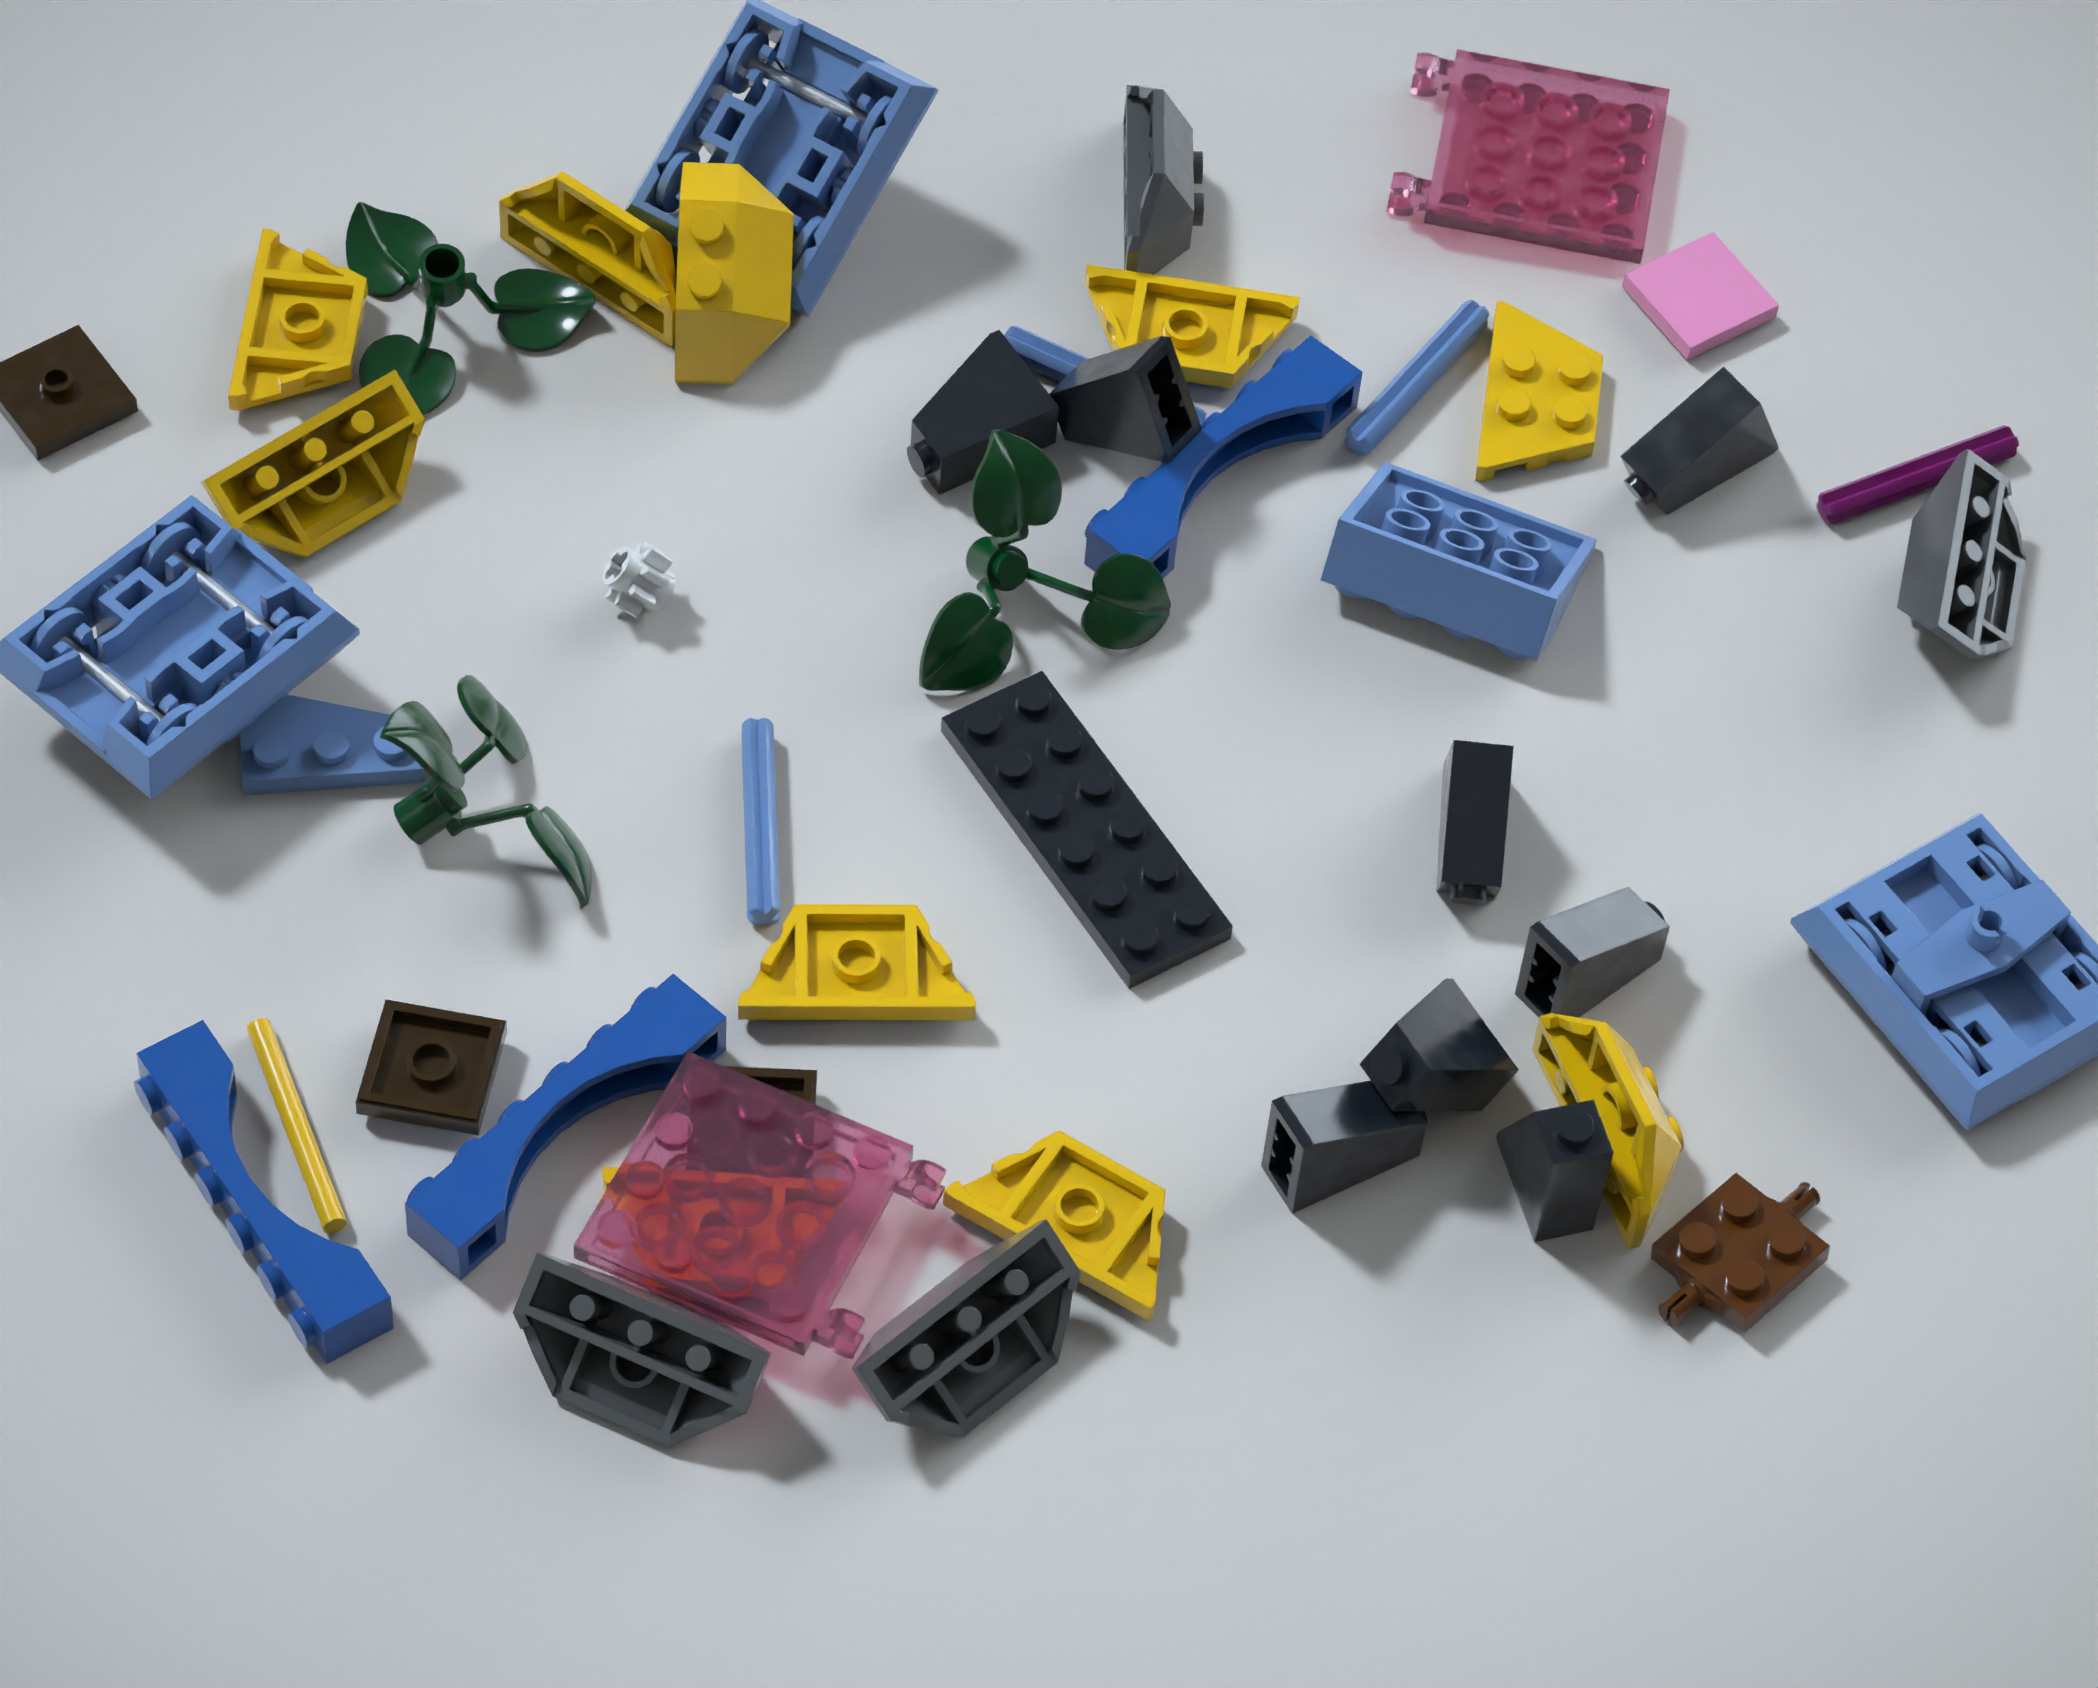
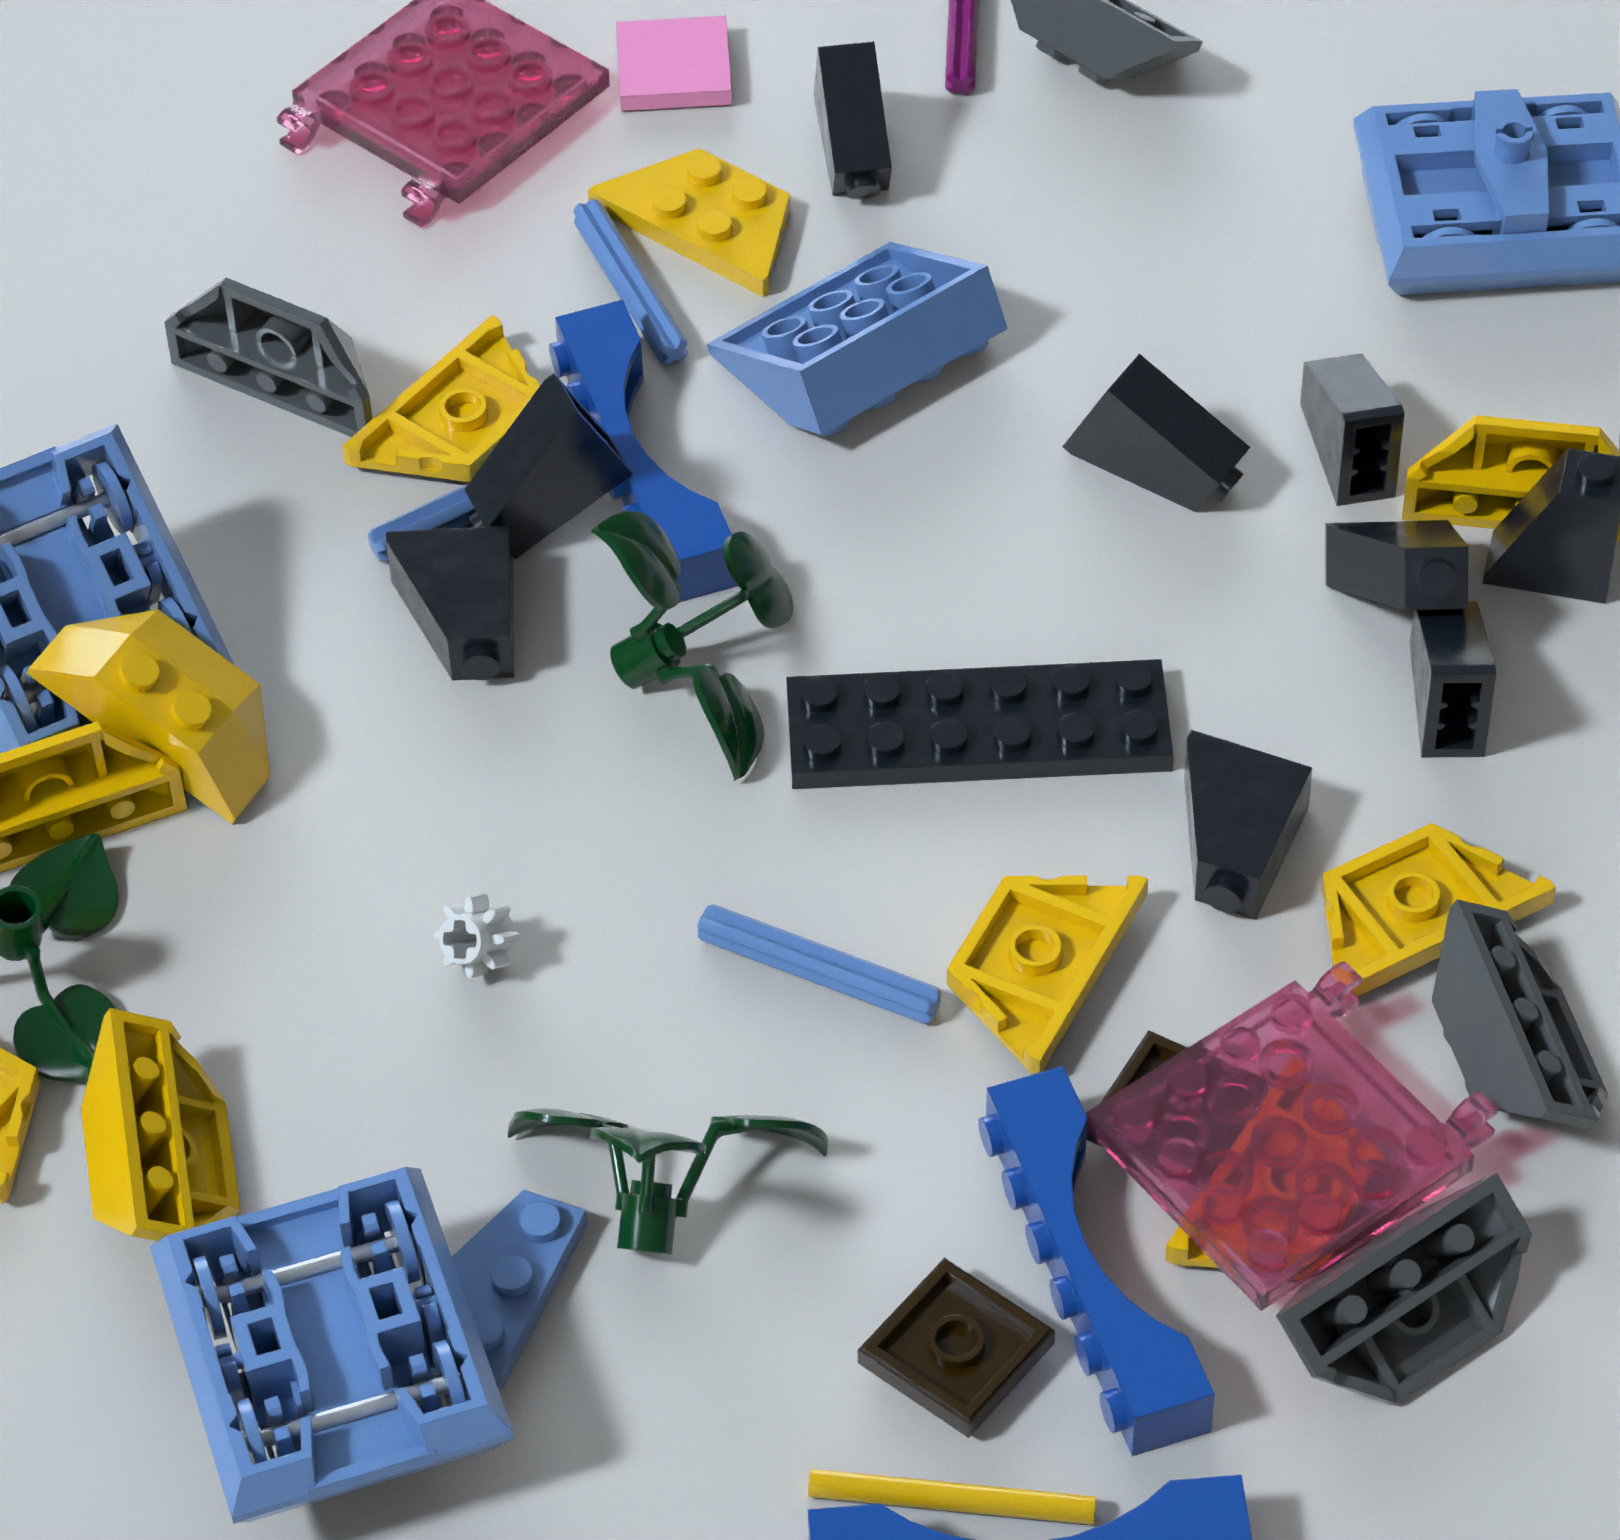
camera: 55 degrees left, 5 degrees down
(1079, 1050) = (1240, 820): none -> black slope

